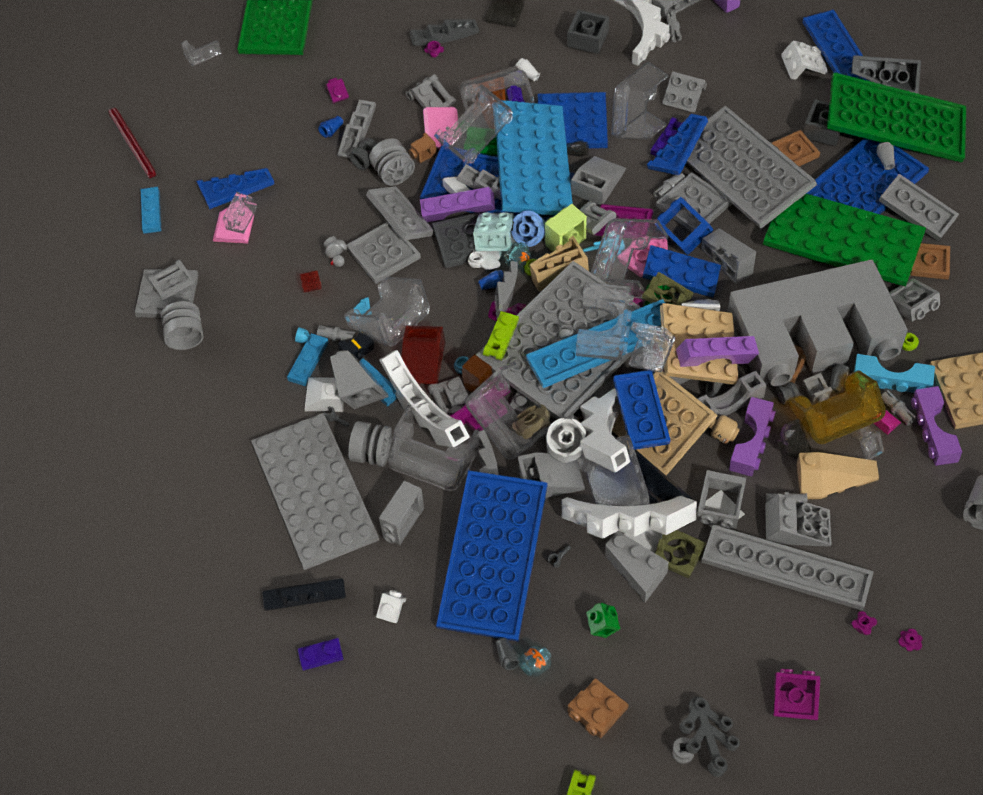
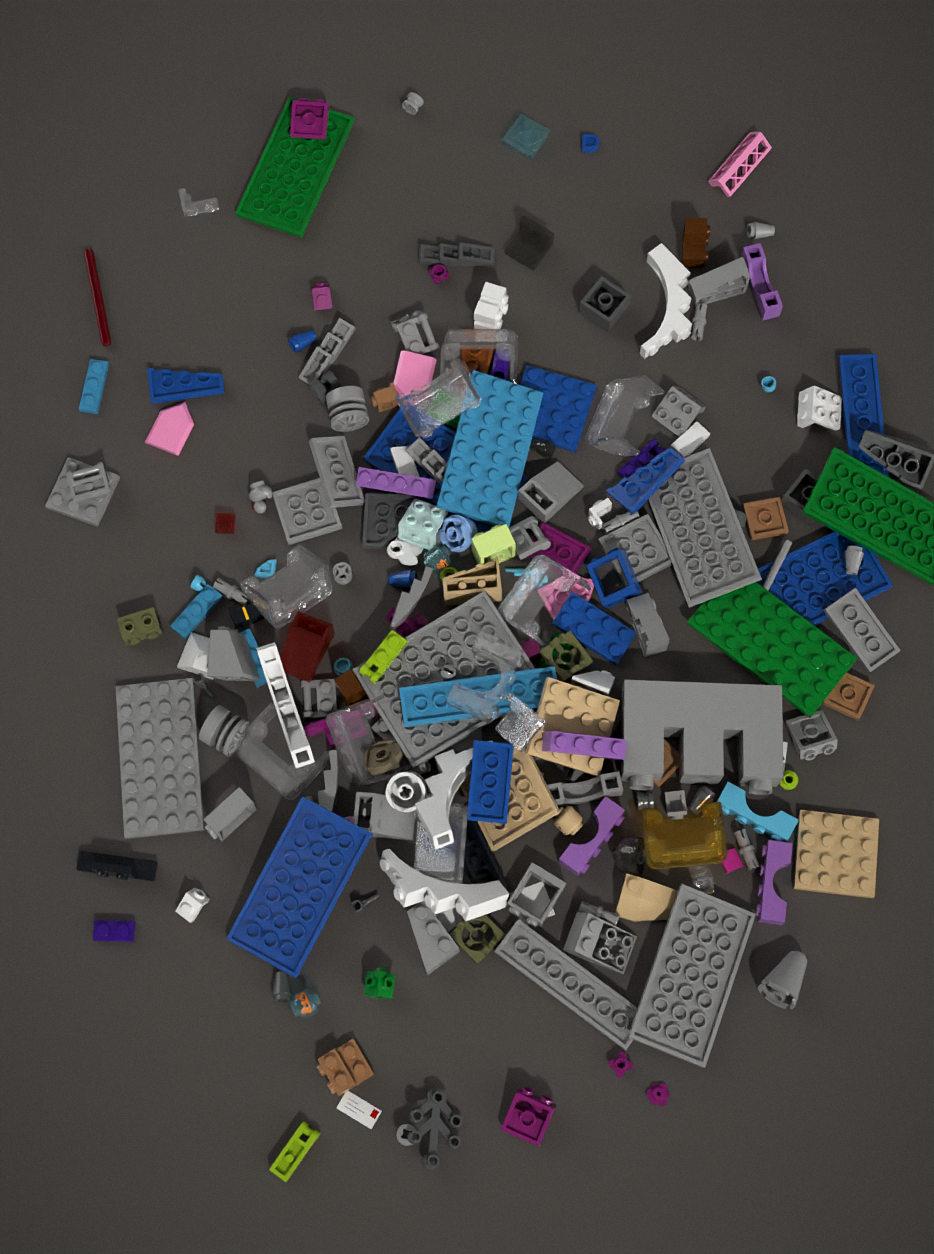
camera: 15 degrees right, 15 degrees up
(182, 325) = (84, 539): light grey wheel -> none
(239, 213) = (178, 422): clear hinge -> none
(258, 384) = (139, 626): none -> olive brick
(431, 287) = (342, 569): none -> light grey wheel
(490, 53) = (491, 307): none -> white brick
(529, 69) = (525, 331): white cone -> none
(625, 744) = (359, 1109): none -> white sticker
(647, 182) = (599, 509): none -> white bracket
(706, 107) = (690, 440): none -> white tile
(753, 54) = (766, 382): none -> medium azure hinge
(822, 177) = (777, 564): none -> light grey bar
(897, 525) = (692, 976): none -> light grey plate

